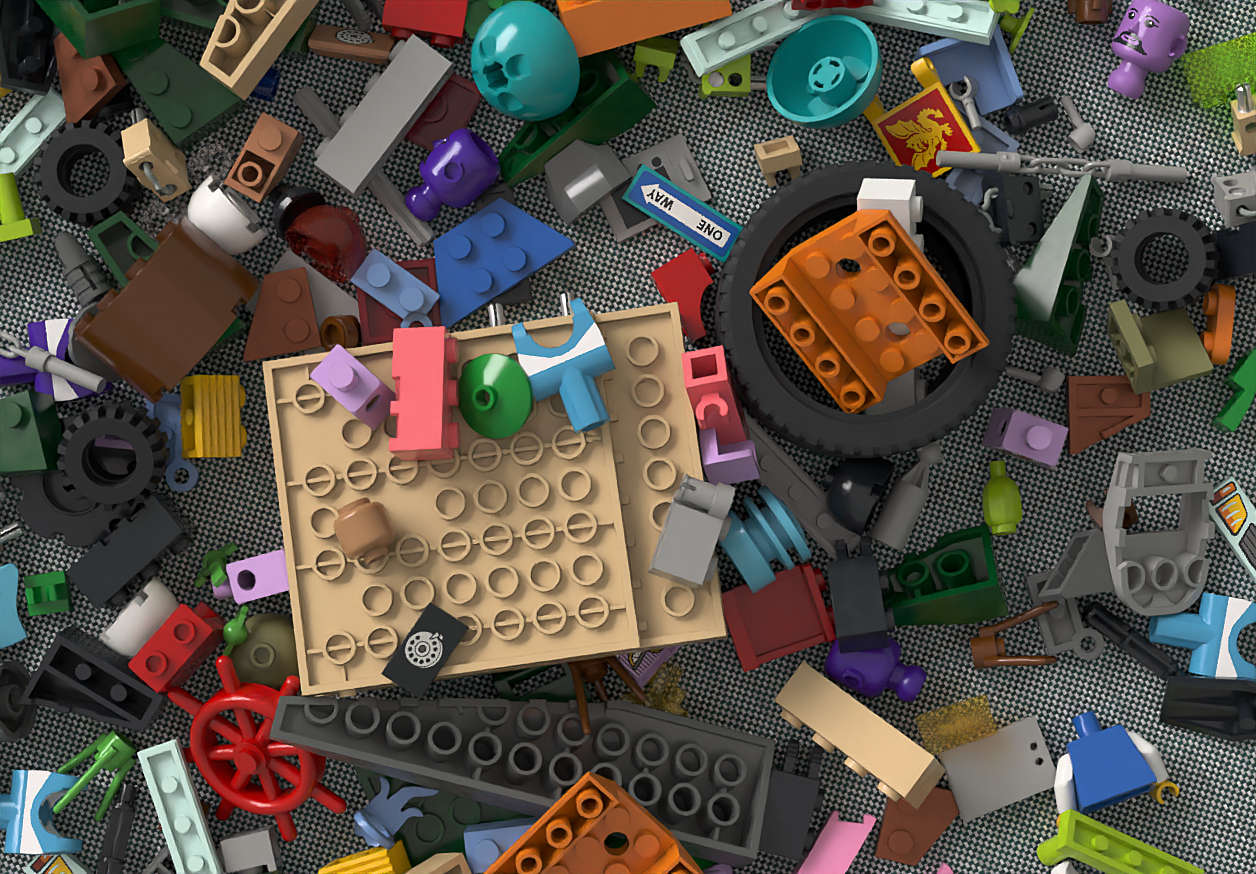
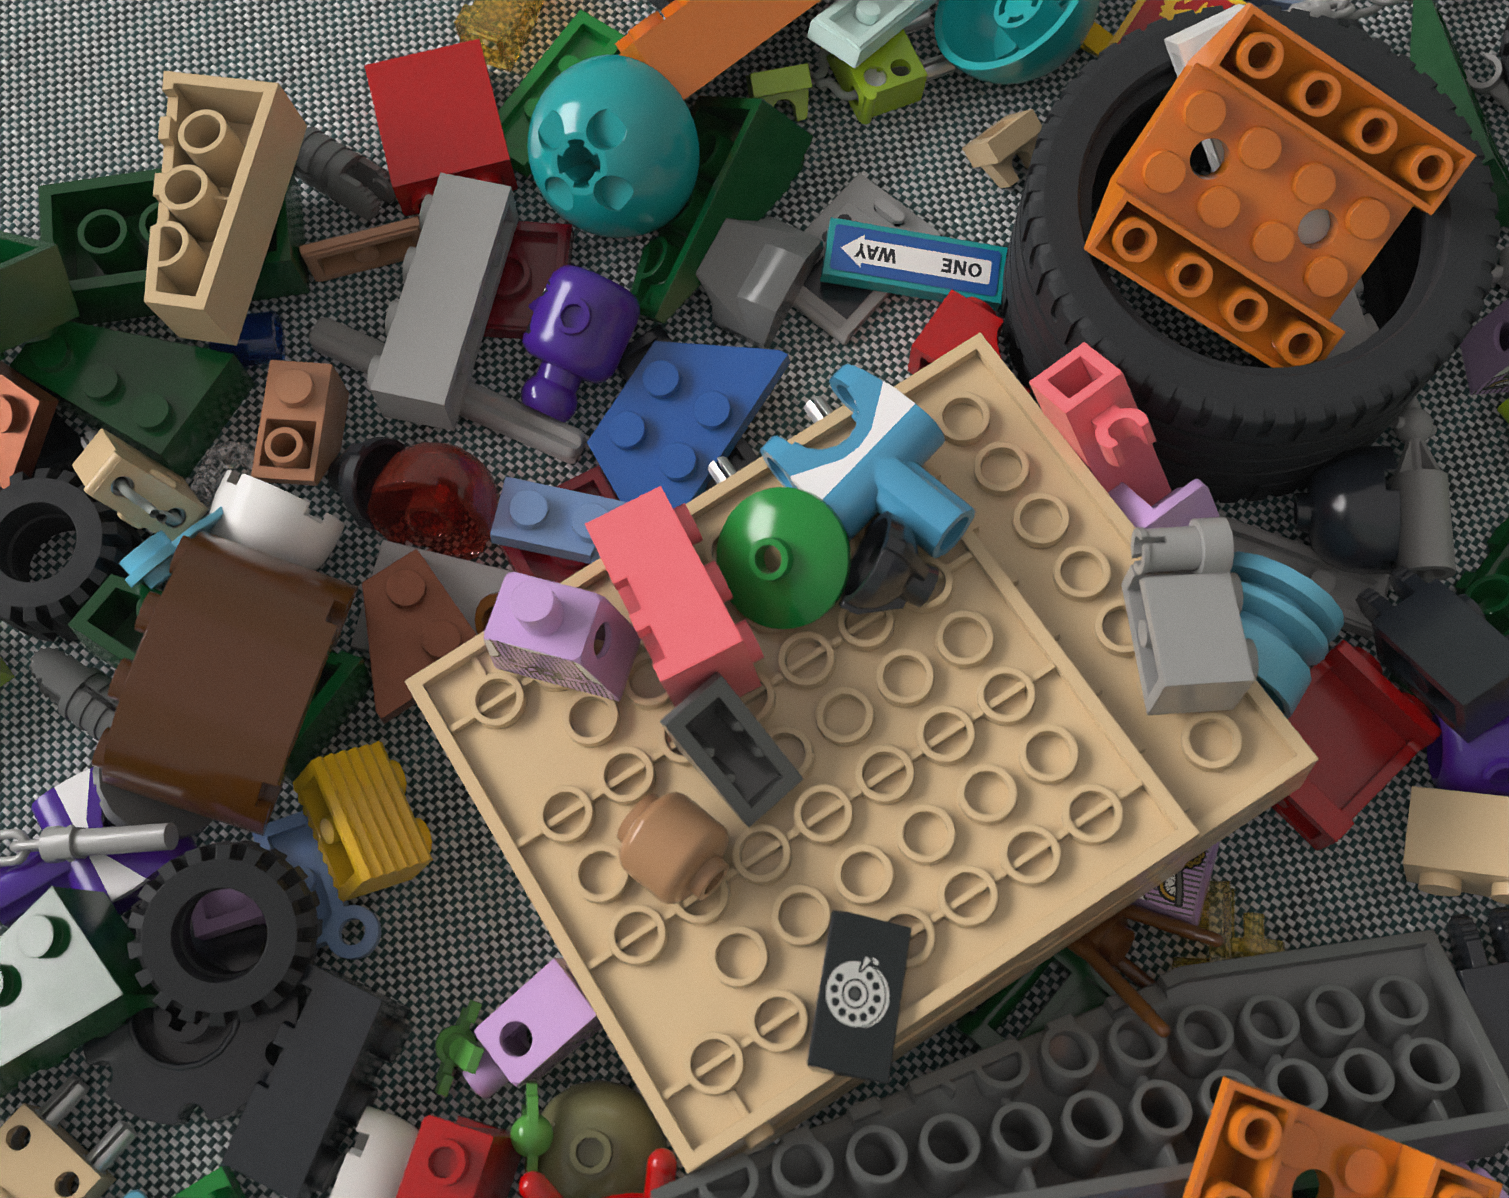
camera: 15 degrees left, 15 degrees down
(150, 216) = (153, 557): none -> medium azure plate
(418, 492) = (731, 749): none -> dark grey slope
(547, 429) = (887, 569): none -> black piece

